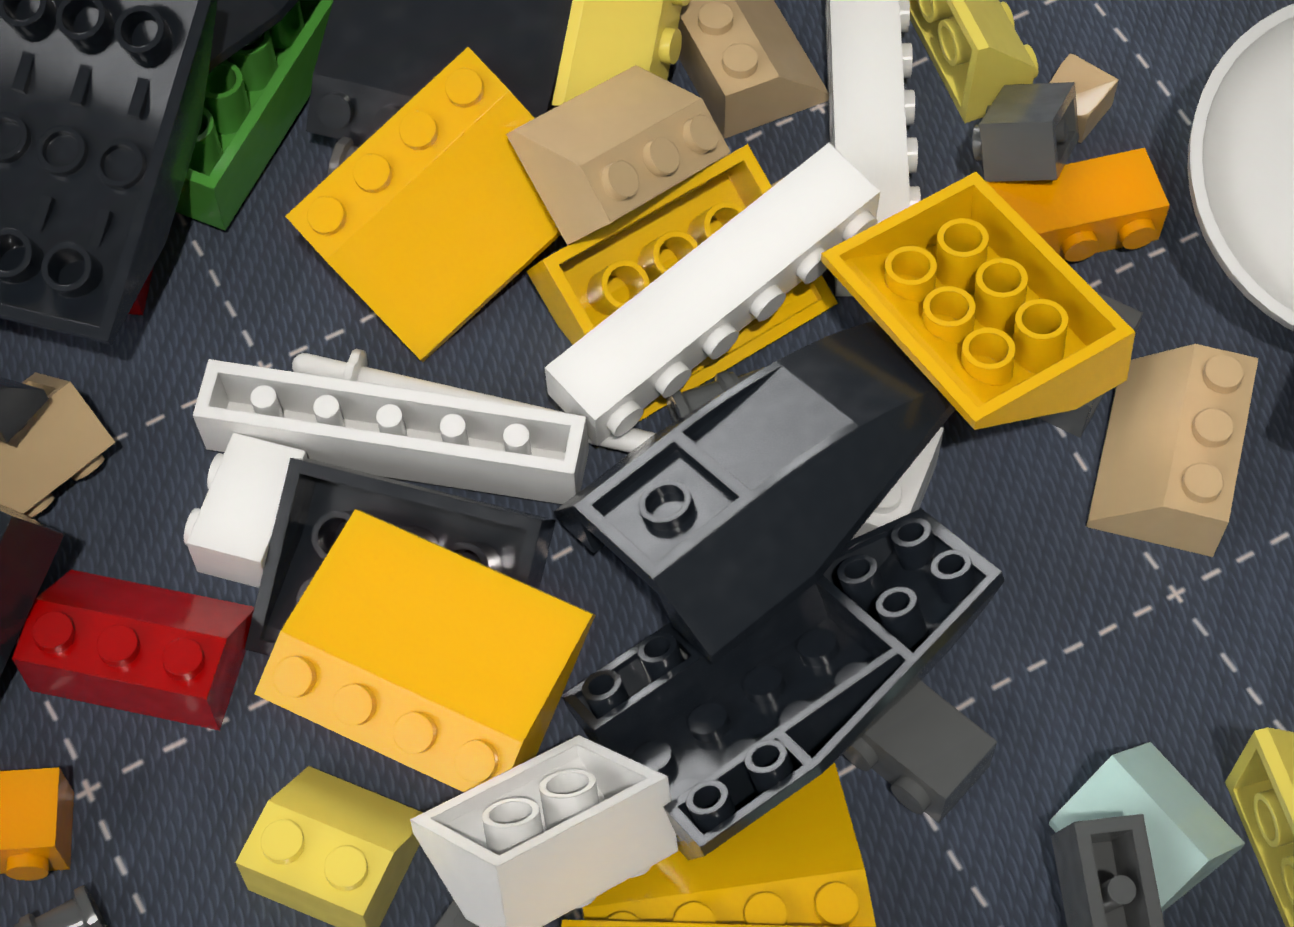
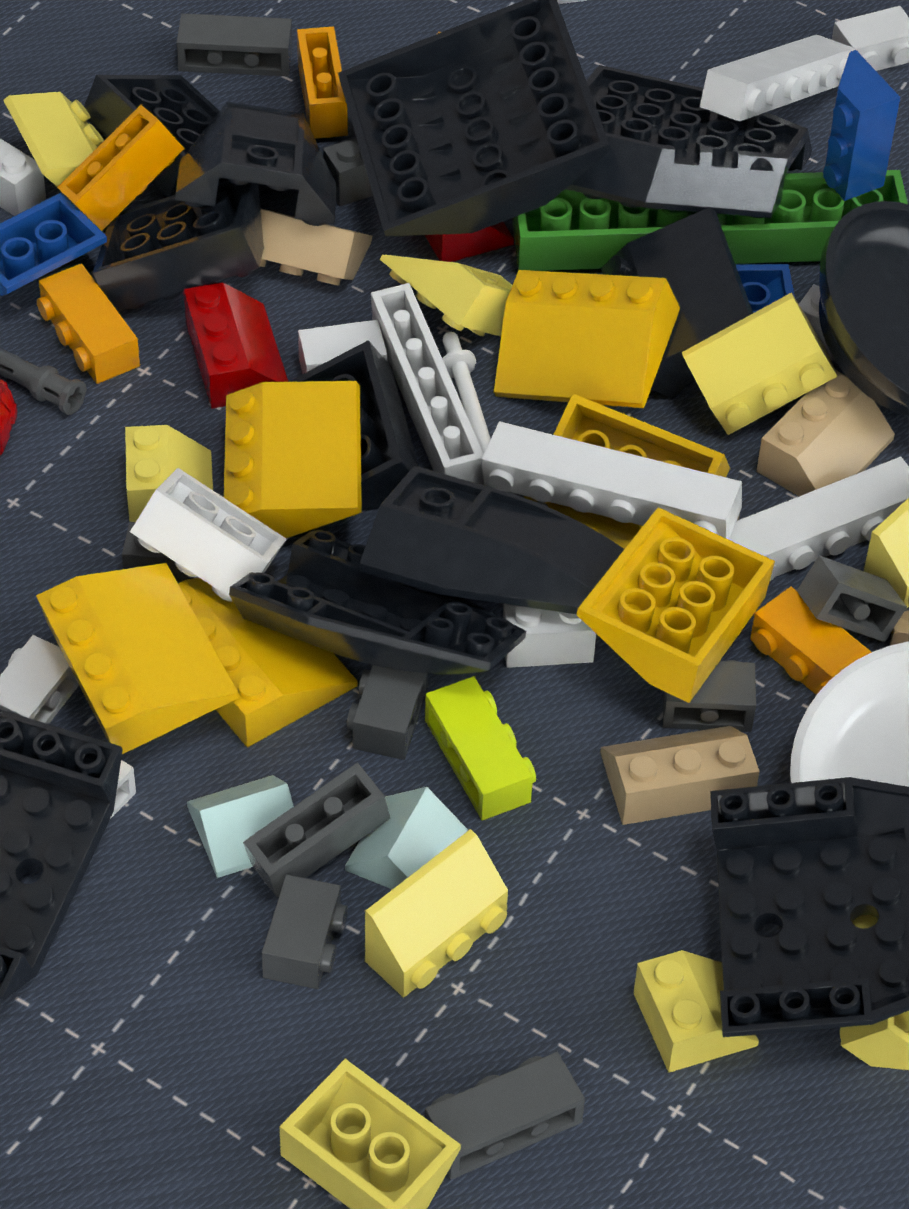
camera: 60 degrees right, 10 degrees down
(249, 305) = (461, 292): none -> light yellow slope
(615, 149) = (666, 387): tan slope -> none
(1046, 665) = (479, 747): none -> neon yellow brick

